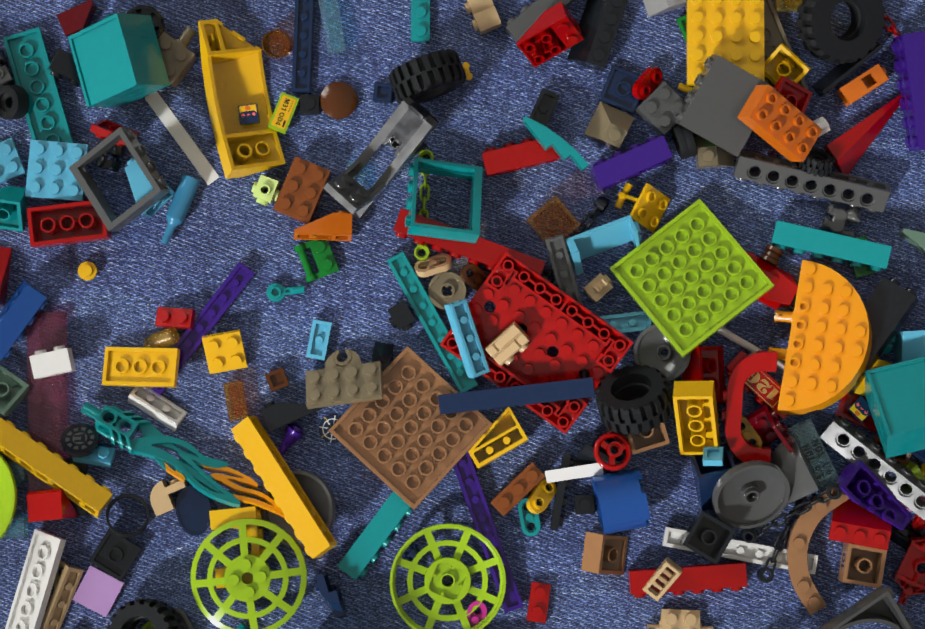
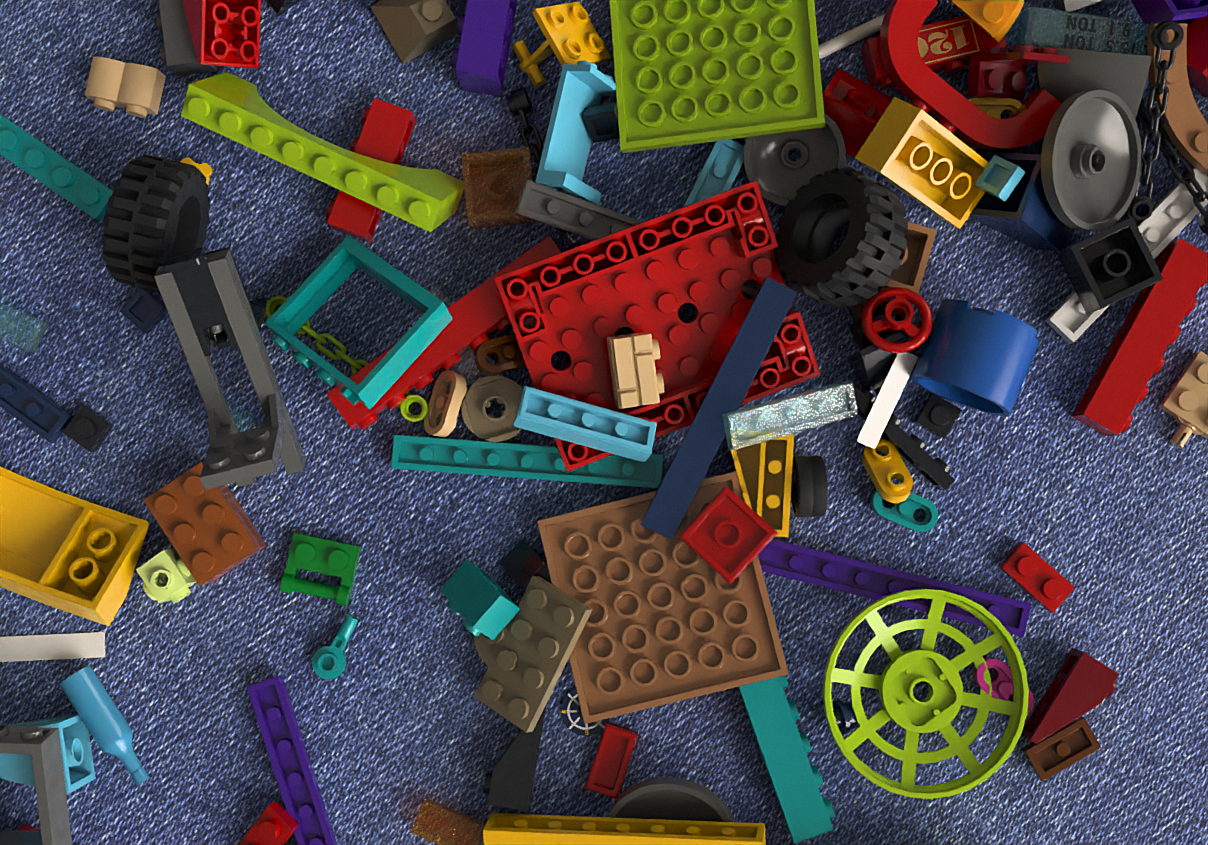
camera: 60 degrees left, 0 degrees up
(224, 351) = (364, 797): yellow plate -> none
(248, 114) = (39, 527): dark blue tile -> none
(277, 379) = (458, 746): reddish brown plate -> none
(283, 113) = (73, 475): tile -> none
(292, 434) = (555, 778): dark purple cone -> none
(318, 456) = (611, 760): none -> red tile
(319, 339) = (441, 644): medium azure plate -> none
(328, 228) = (285, 520): orange slope -> none
(338, 100) = (110, 382): reddish brown dish -> none
(352, 343) = (479, 601): none -> teal brick
(401, 316) = (488, 501): black brick -> none
(459, 439) = (728, 535): none -> red plate
(505, 75) = (239, 113): none -> lime arch
(508, 463) = (809, 486): none -> black tyre
(517, 488) = (853, 498): dark orange brick -> none
(535, 431) = (790, 414): none -> clear light blue plate
(544, 107) = (326, 95): black plate -> none
(550, 139) = (371, 108): teal slope -> none
(598, 287) = (637, 187): tan brick -> none
(604, 553) = (1031, 437): medium nougat slope -> none
(617, 250) = (602, 122): none -> black plate
(657, 575) = (1116, 376): tan slope -> none

